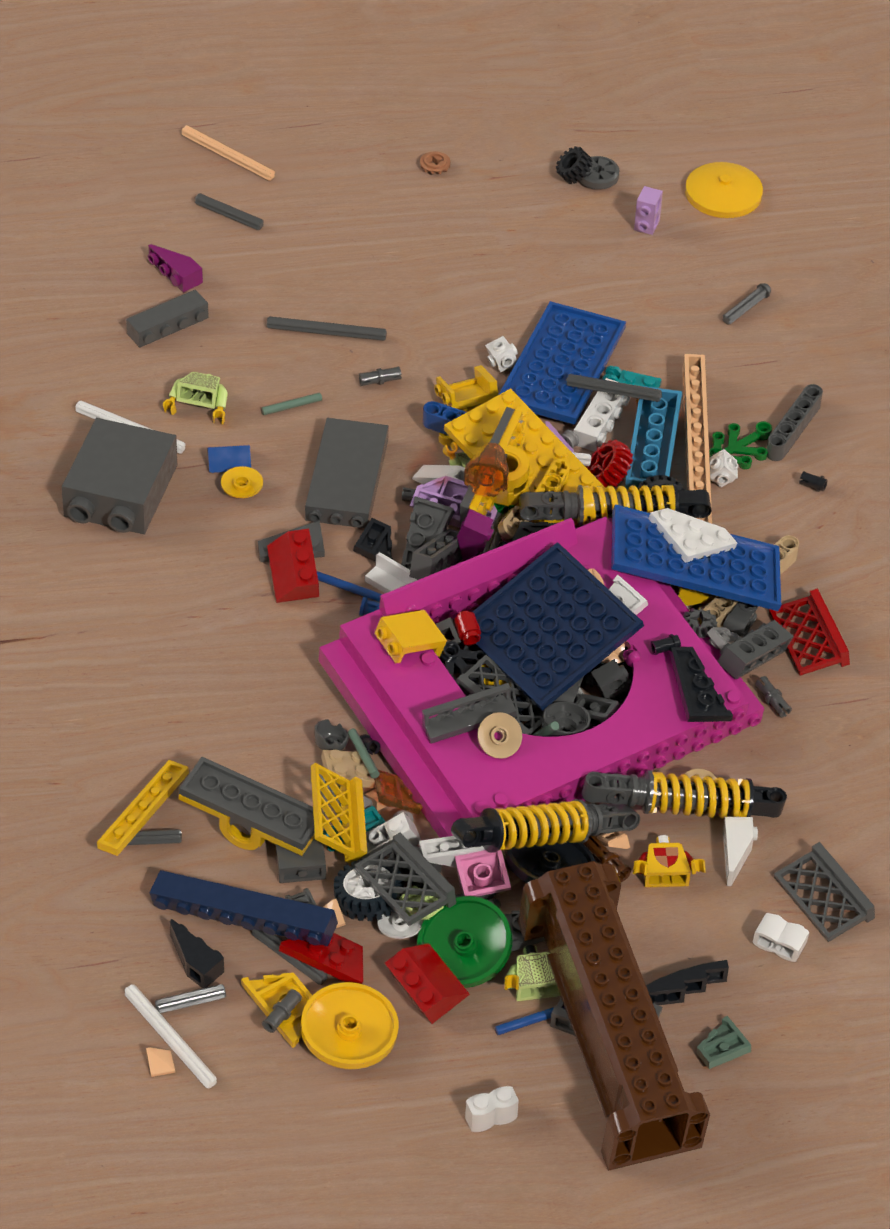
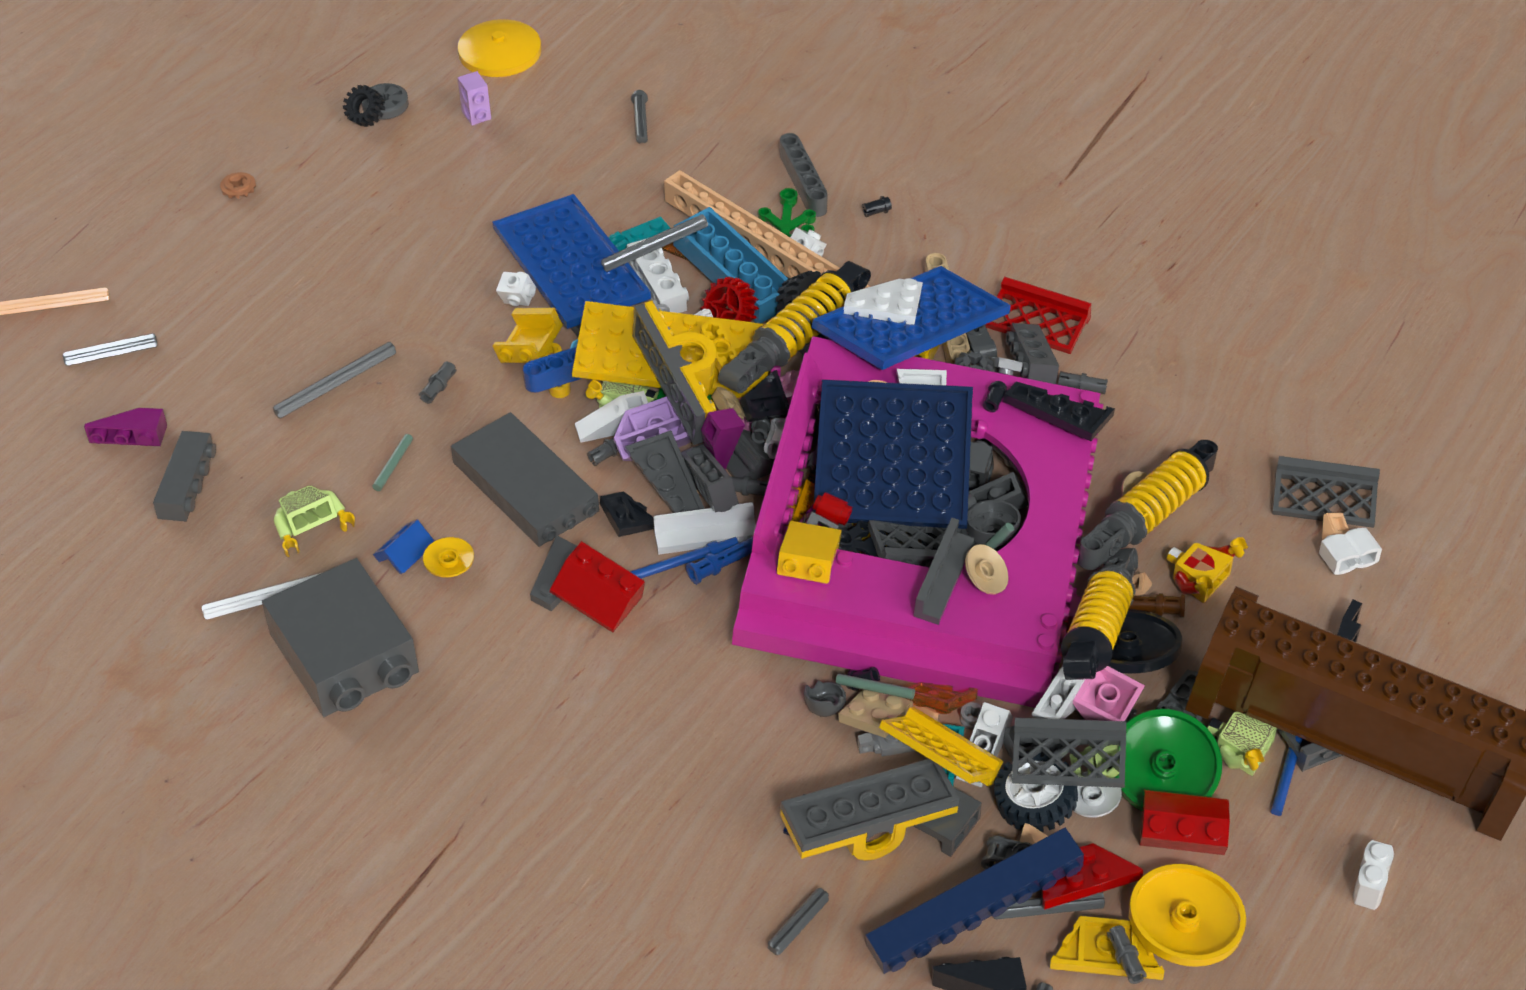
camera: 45 degrees left, 0 degrees up
(142, 808) = (768, 898): yellow plate -> none
(487, 471) = (695, 365): clear orange cone -> none
(723, 1044) = (1432, 658): sand green wing -> none
(738, 842) = (1223, 510): white slope -> none
(797, 914) = (1334, 524): none -> light nougat slope

